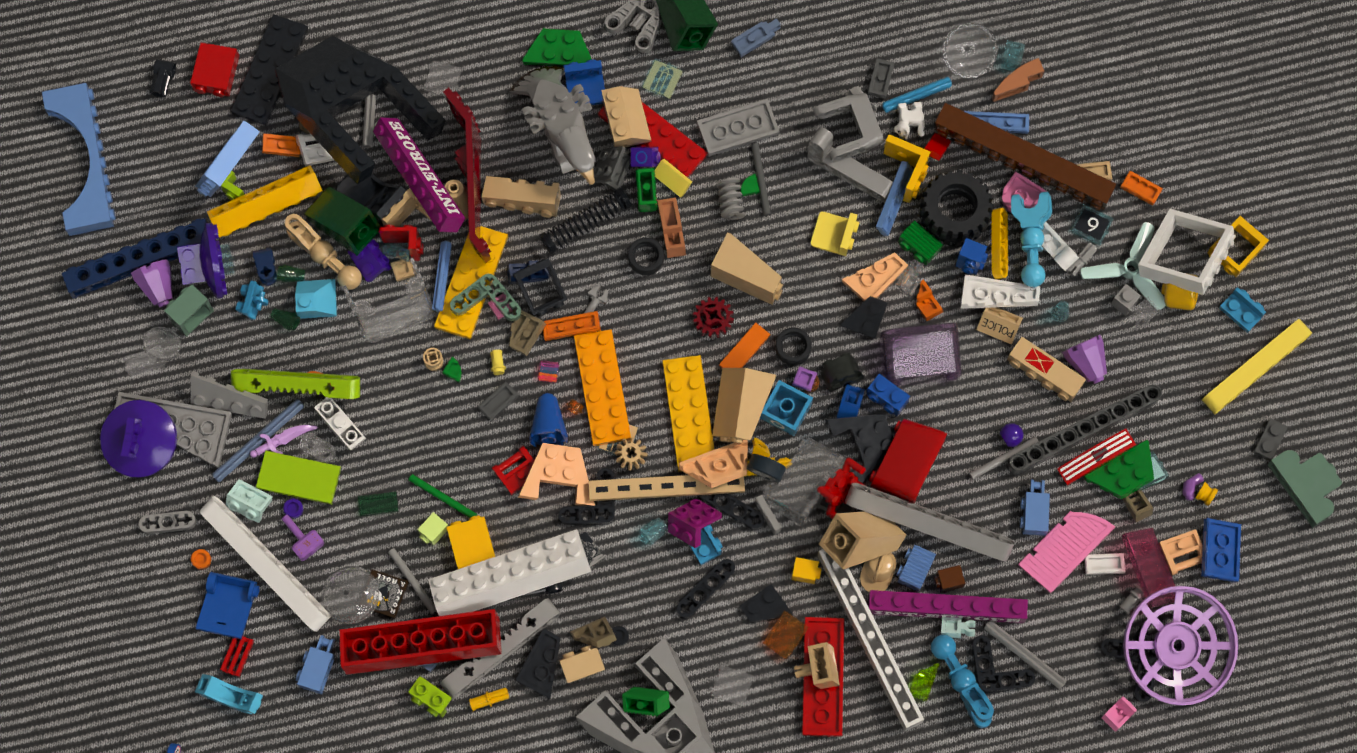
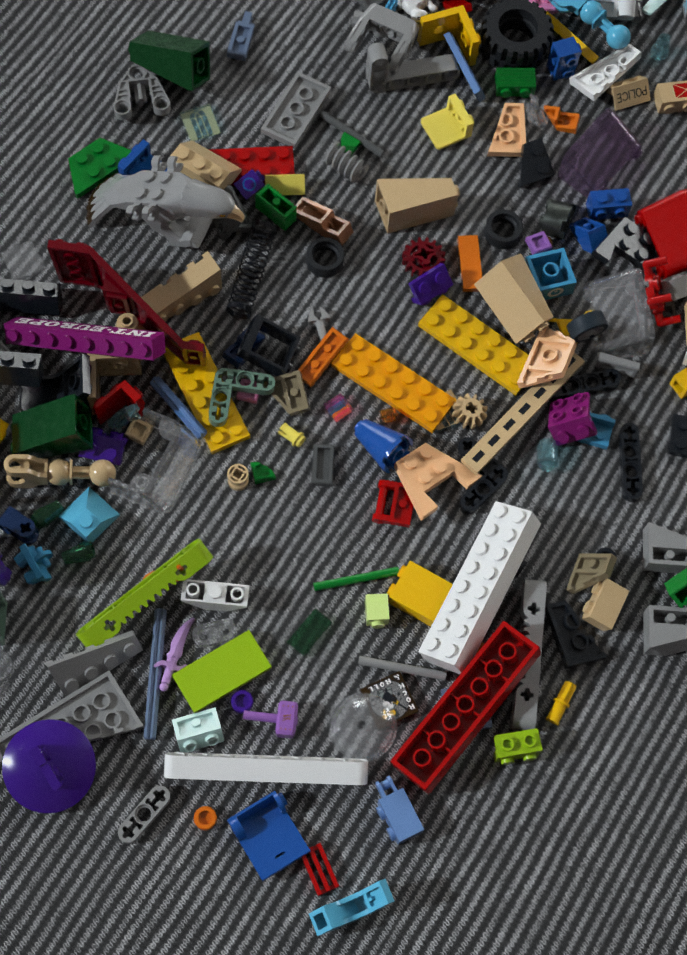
camera: 50 degrees left, 5 degrees down
(694, 341) = (430, 284): none -> dark purple bracket

